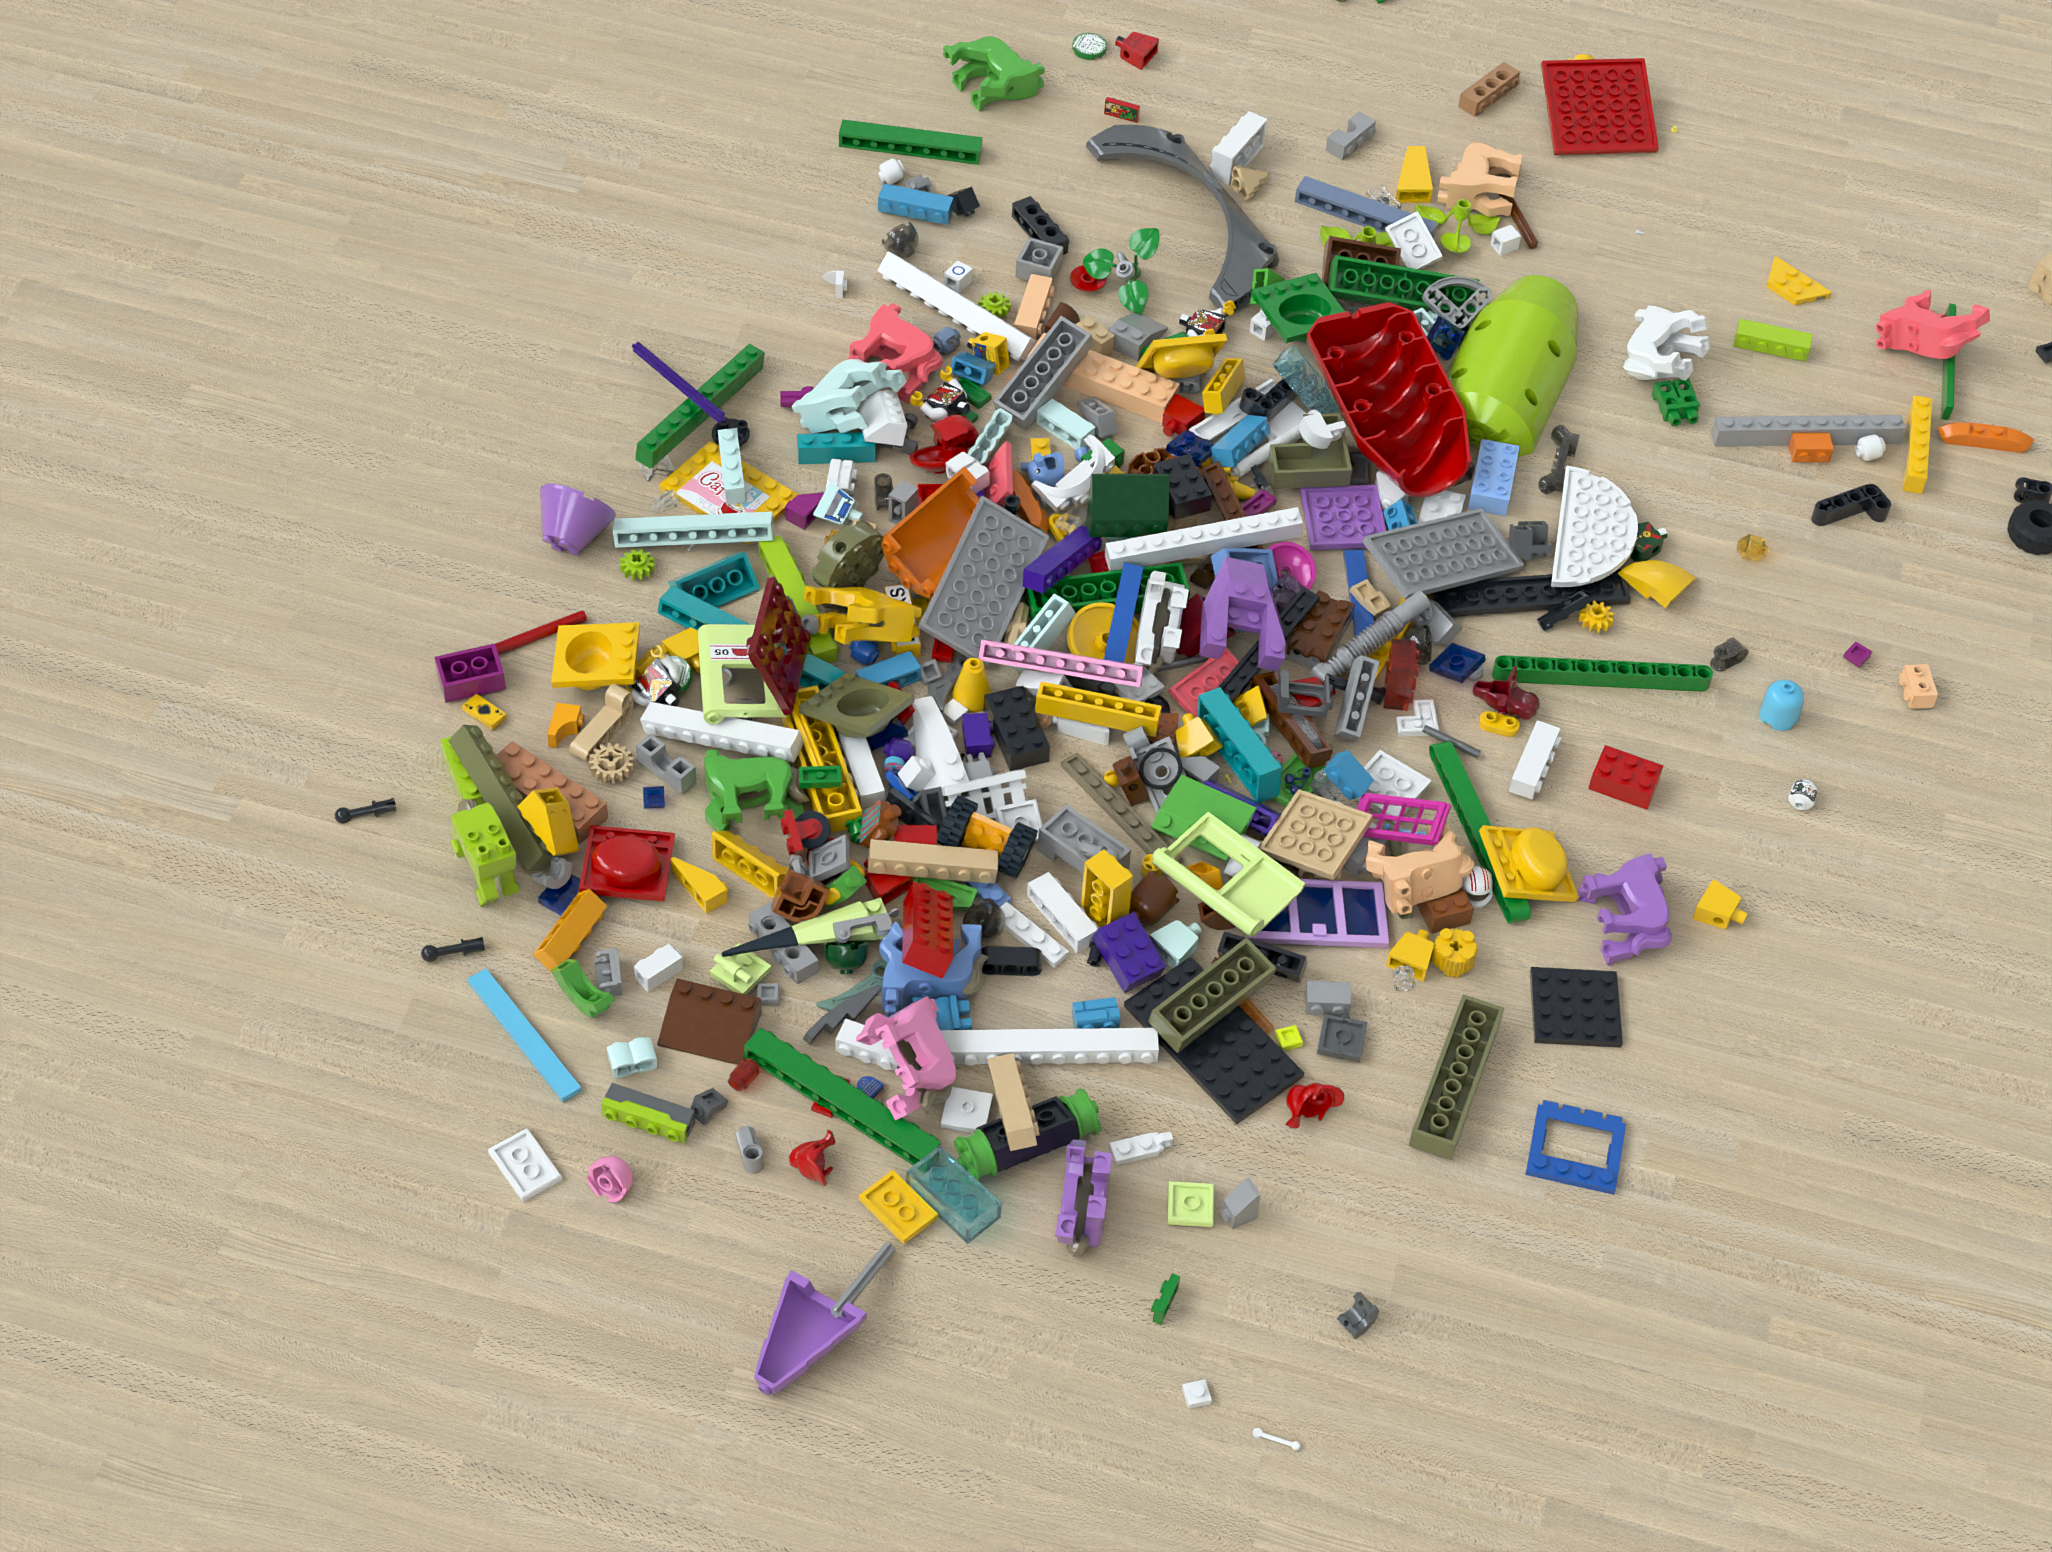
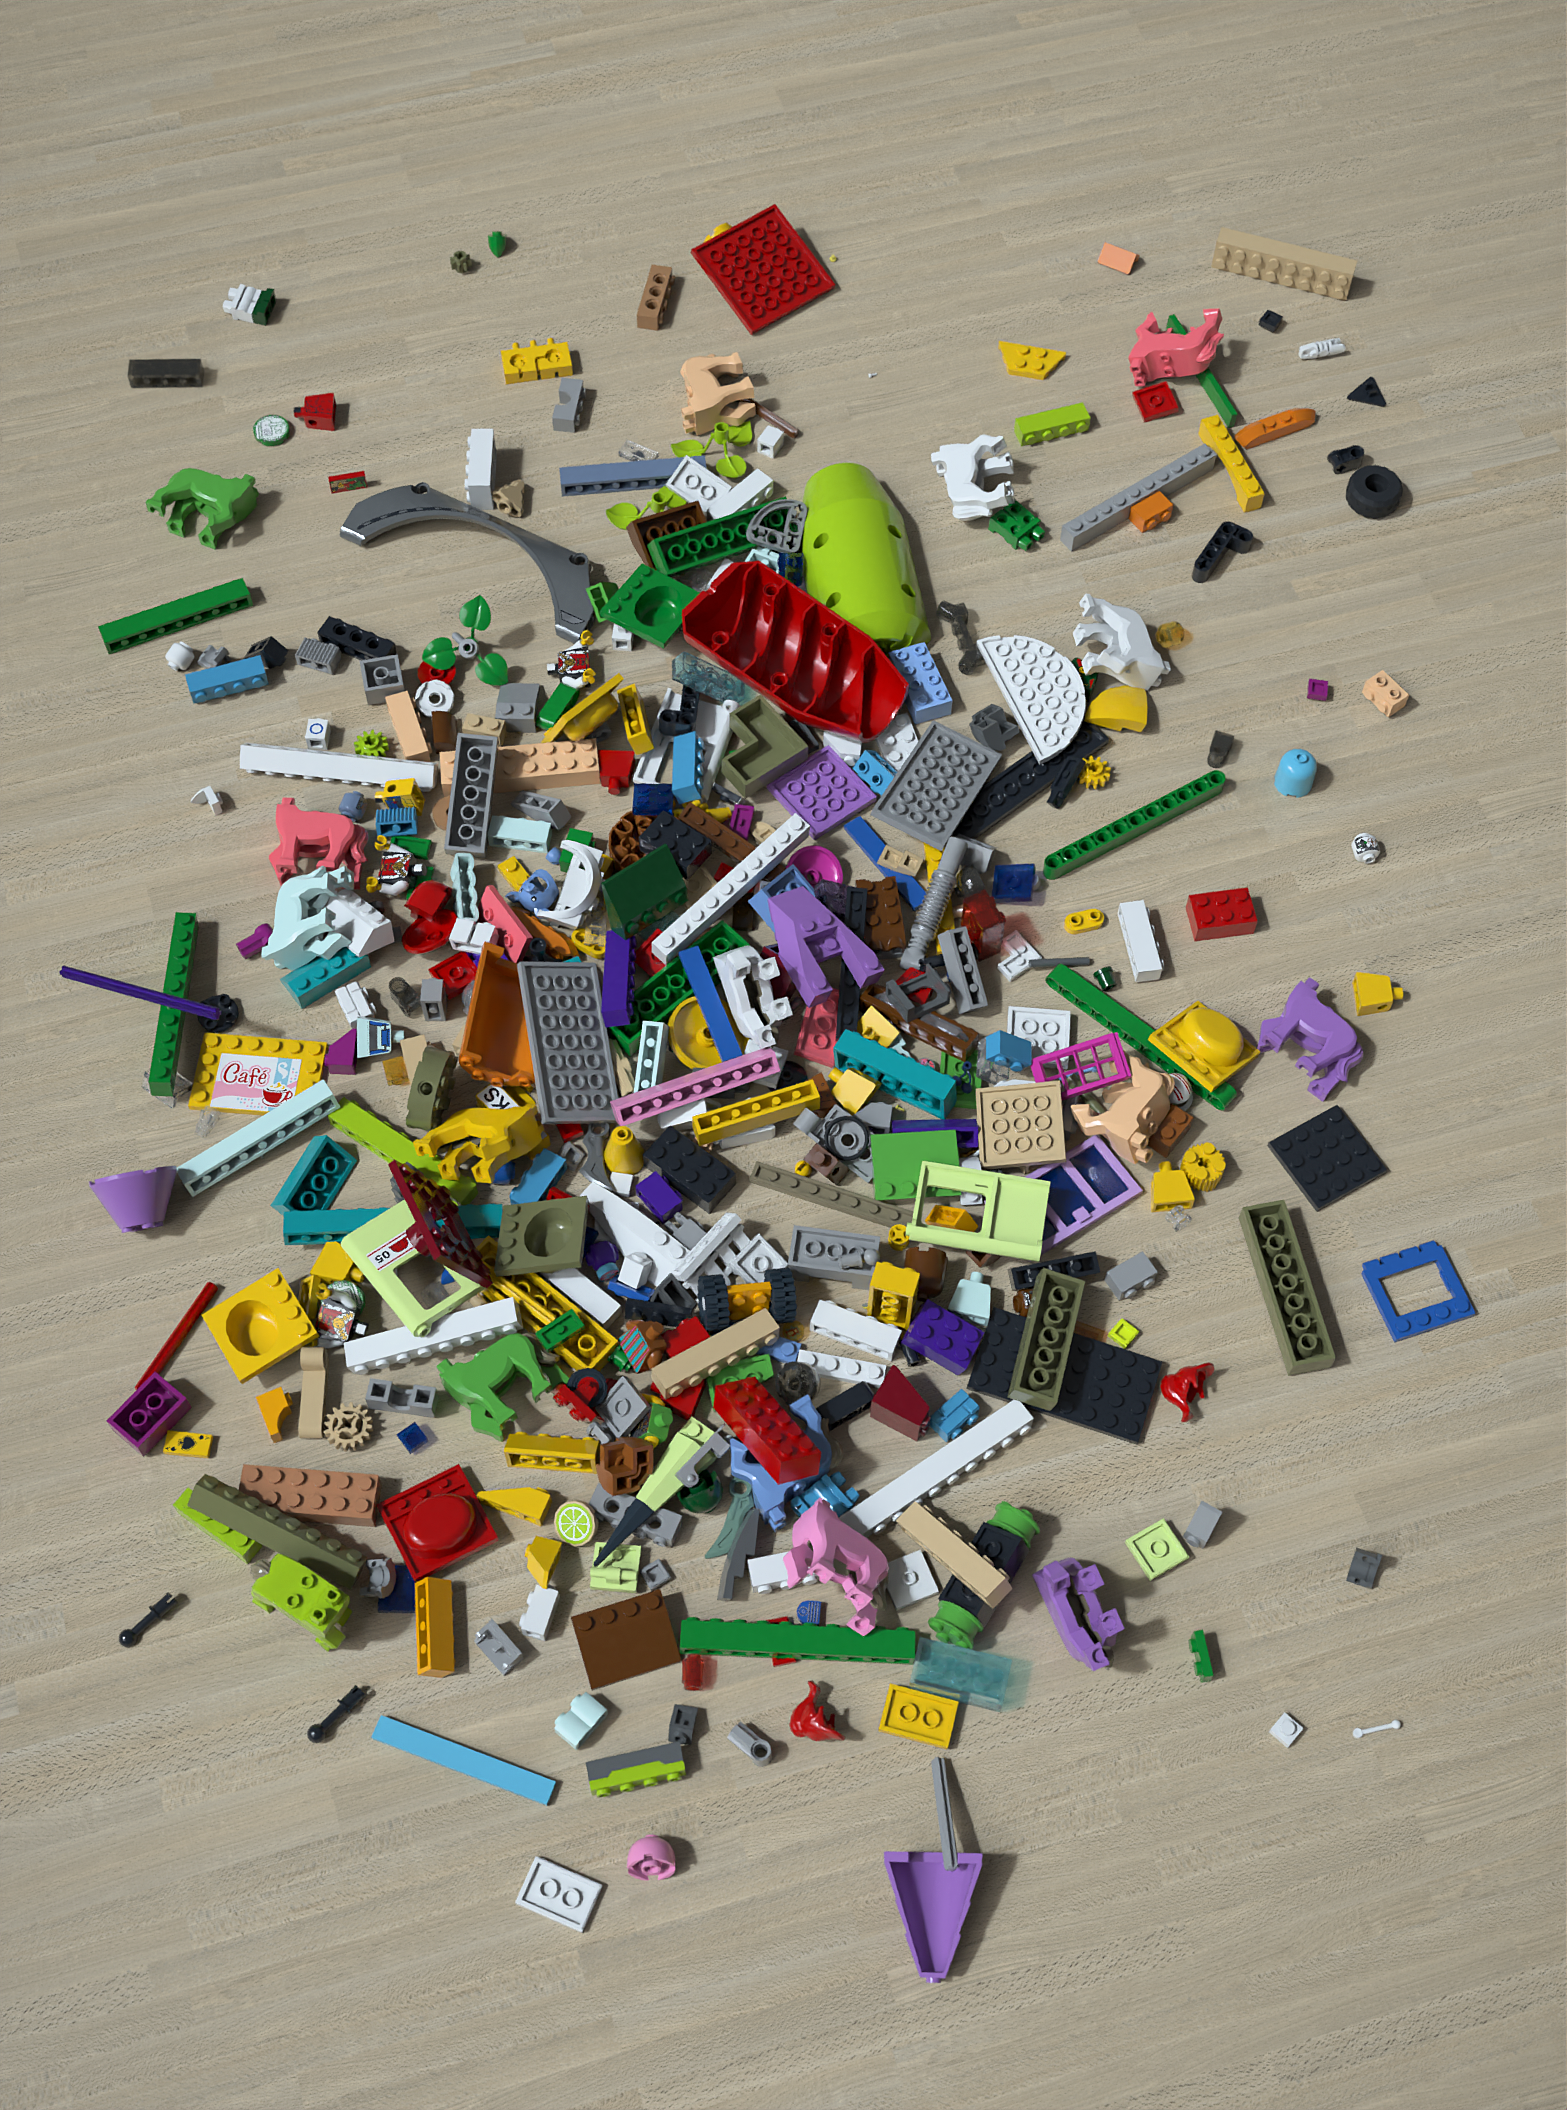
camera: 30 degrees left, 10 degrees up
(551, 819) = (345, 1530): yellow slope -> none
(580, 989) = (489, 1683): bright green arch -> none
(637, 564) = (234, 1202): lime gear -> none
(689, 931) = (543, 1559): none -> yellow slope
(731, 466) = (248, 1050): light aqua brick -> none
(732, 921) = (576, 1523): none -> tile
(811, 624) = (440, 1175): light grey tile -> none
(902, 240) = (242, 725): clear smoke cylinder -> none
(1002, 222) = (318, 655): none -> light grey brick
(1012, 887) = (793, 1331): none -> clear yellow tile
(1052, 980) = (900, 1406): none -> dark red slope
(1073, 286) = (431, 688): none -> white tile
(1140, 1147) = (1076, 1521): white hinge -> none
(1318, 433) = (756, 726): white brick -> none
(1342, 1037) = (1167, 1306): dark grey plate -> none
(1355, 94) = (542, 360): none -> yellow piece
(1415, 177) = (652, 419): yellow slope -> none
(1458, 265) = (743, 496): none -> white brick
(1483, 772) = (1105, 978): none -> dark green piece
(1507, 697) = (1077, 893): dark red piece -> none
(1705, 518) = (1129, 648): none -> white piece
(1870, 447) = (1197, 486): white head -> none
(1885, 366) = (1155, 401): none -> red plate
(1940, 240) = (1117, 258): none -> panel

